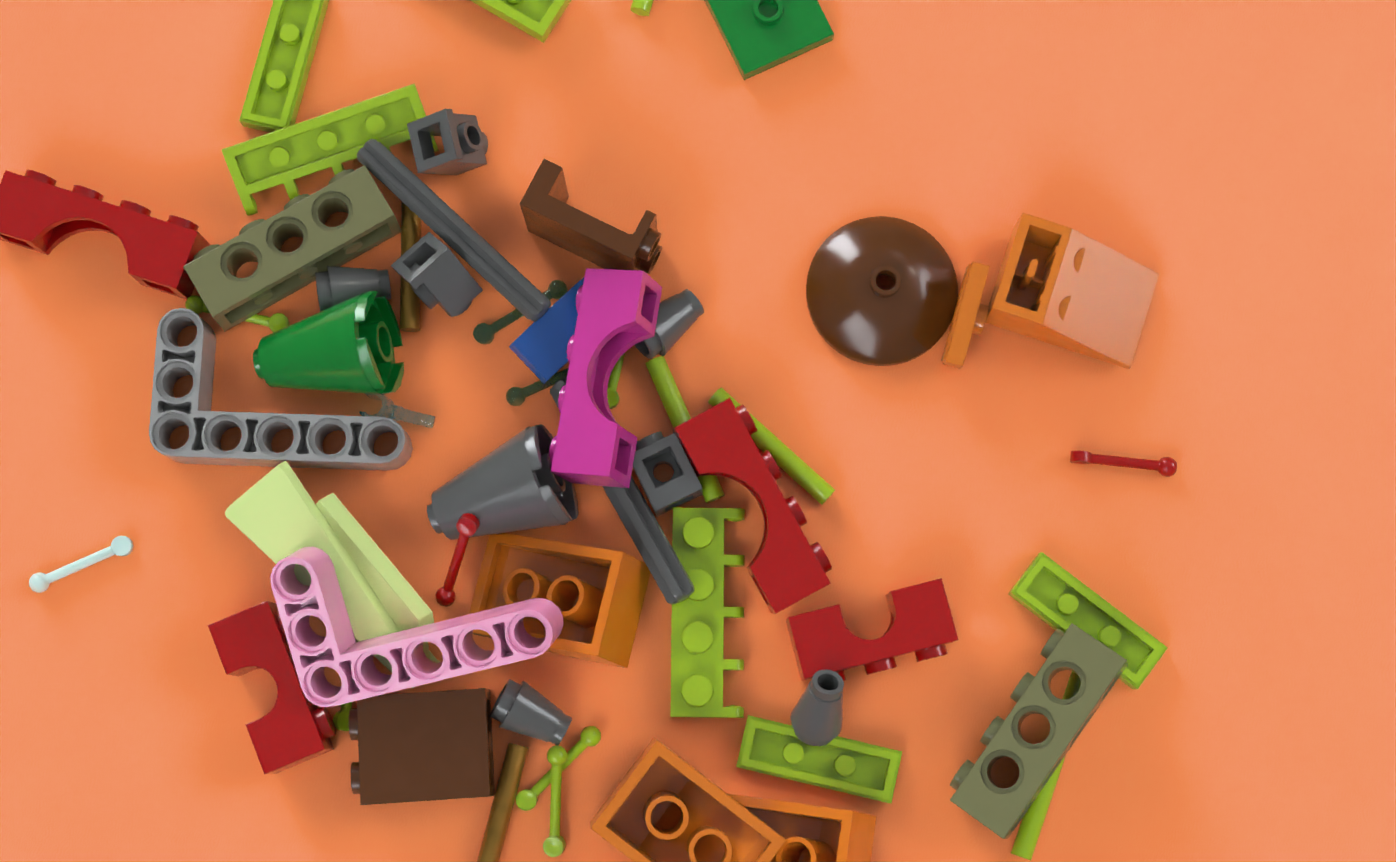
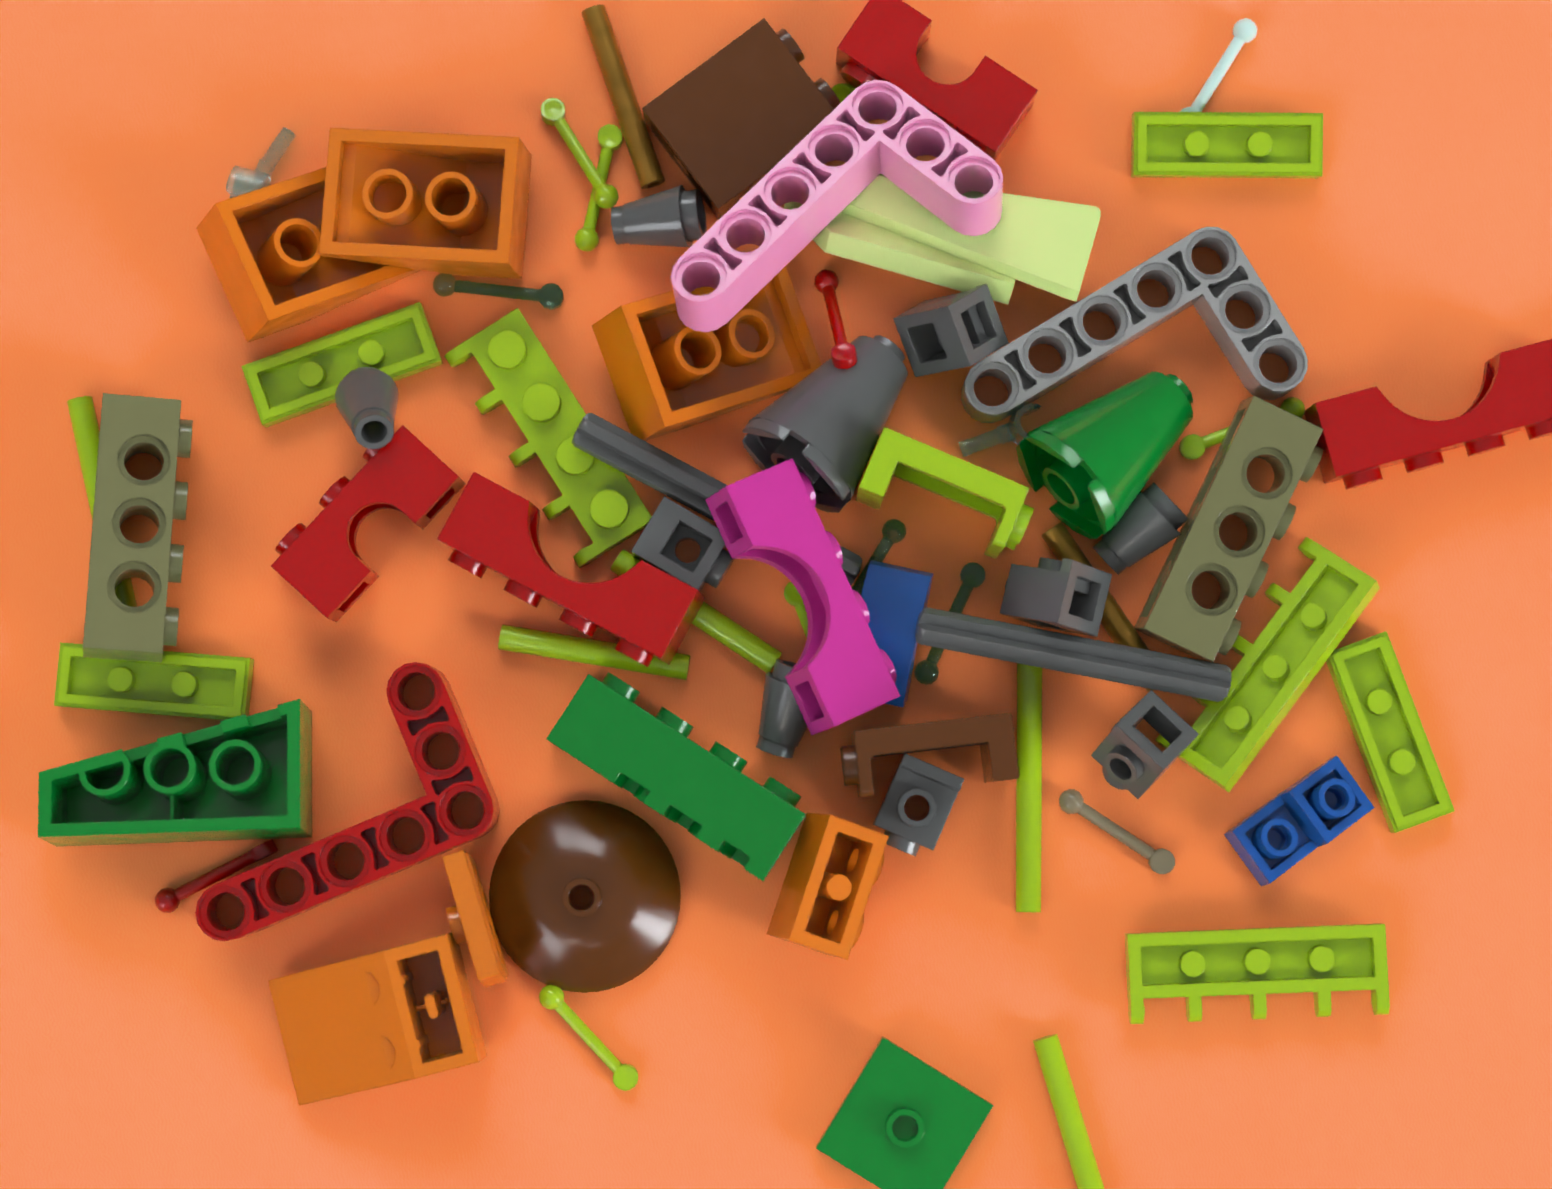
camera: 150 degrees right, 5 degrees up
(109, 510) = (1226, 145): none -> lime tile
(376, 41) = (1299, 821): none -> blue slope
(384, 498) = (951, 331): none -> dark grey brick
(430, 345) = (949, 478): none -> lime panel
(489, 75) = (1159, 859): none -> dark tan hinge
(555, 153) = (1029, 789): none -> lime bar
(602, 205) = (920, 779): none -> dark grey brick
(643, 714) = (549, 295): none -> clear green hinge
(717, 186) = (828, 885): none -> orange brick
(766, 318) = (677, 775): none -> green wedge
(929, 160) = (624, 1075): none -> lime hinge
(1002, 418) = (375, 835): none -> red beam
(1099, 520) = (204, 785): none -> green wedge

